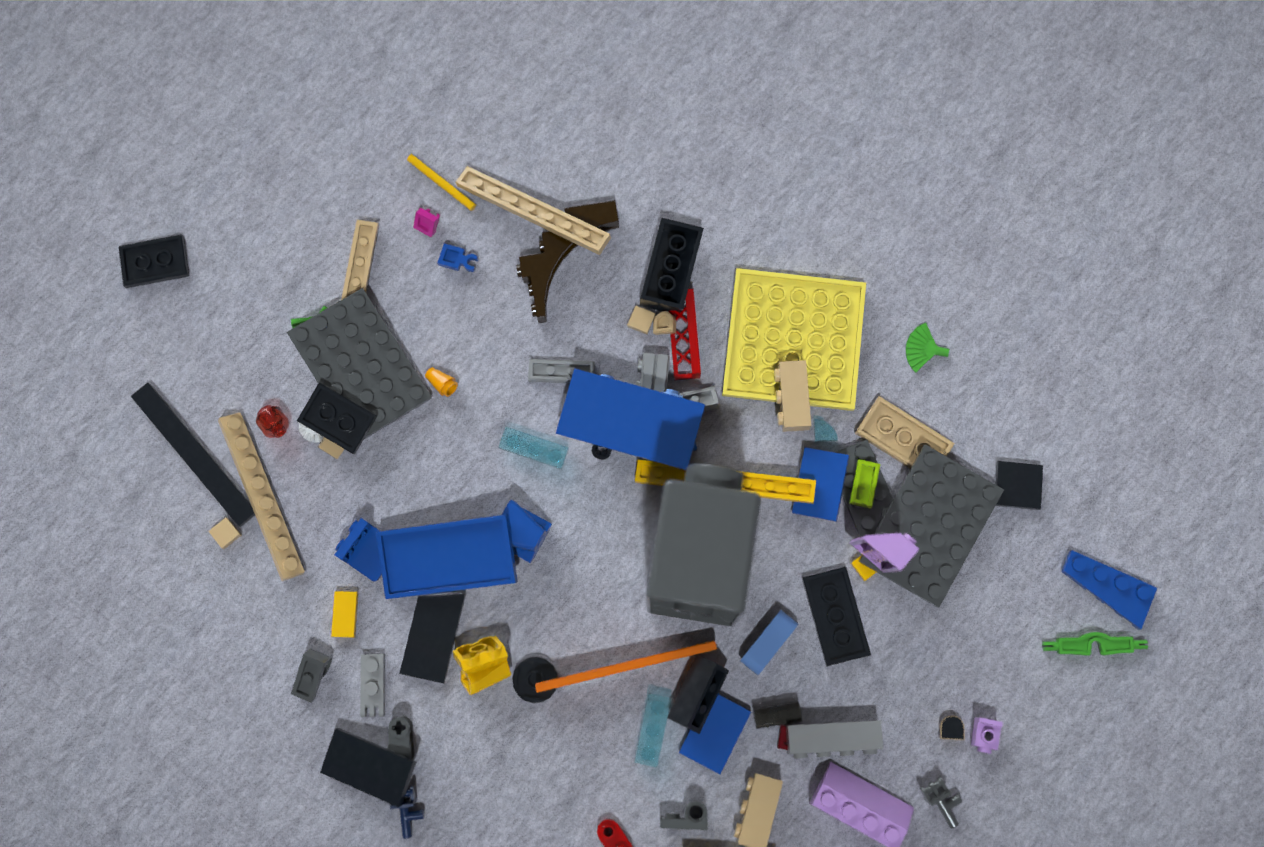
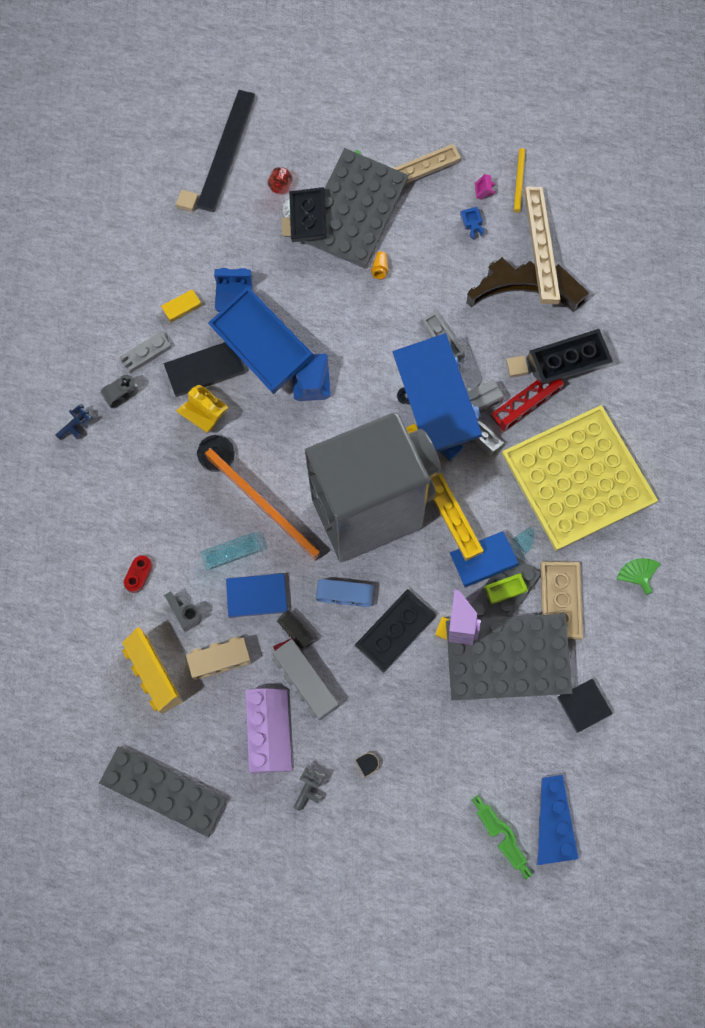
camera: 55 degrees right, 5 degrees down
(153, 261) = (337, 47): black tile -> none
(261, 496) = (225, 206): tan plate -> none
(309, 675) = (129, 306): dark grey plate -> none
(368, 767) = (87, 380): black tile -> none
(533, 448) = (375, 352): clear light blue plate -> none
(664, 323) = (525, 382): tan tile -> none
(698, 694) = (274, 564): black brick -> none
(793, 396) = (534, 498): tan brick -> none
(982, 726) = (387, 791): lavender brick -> none

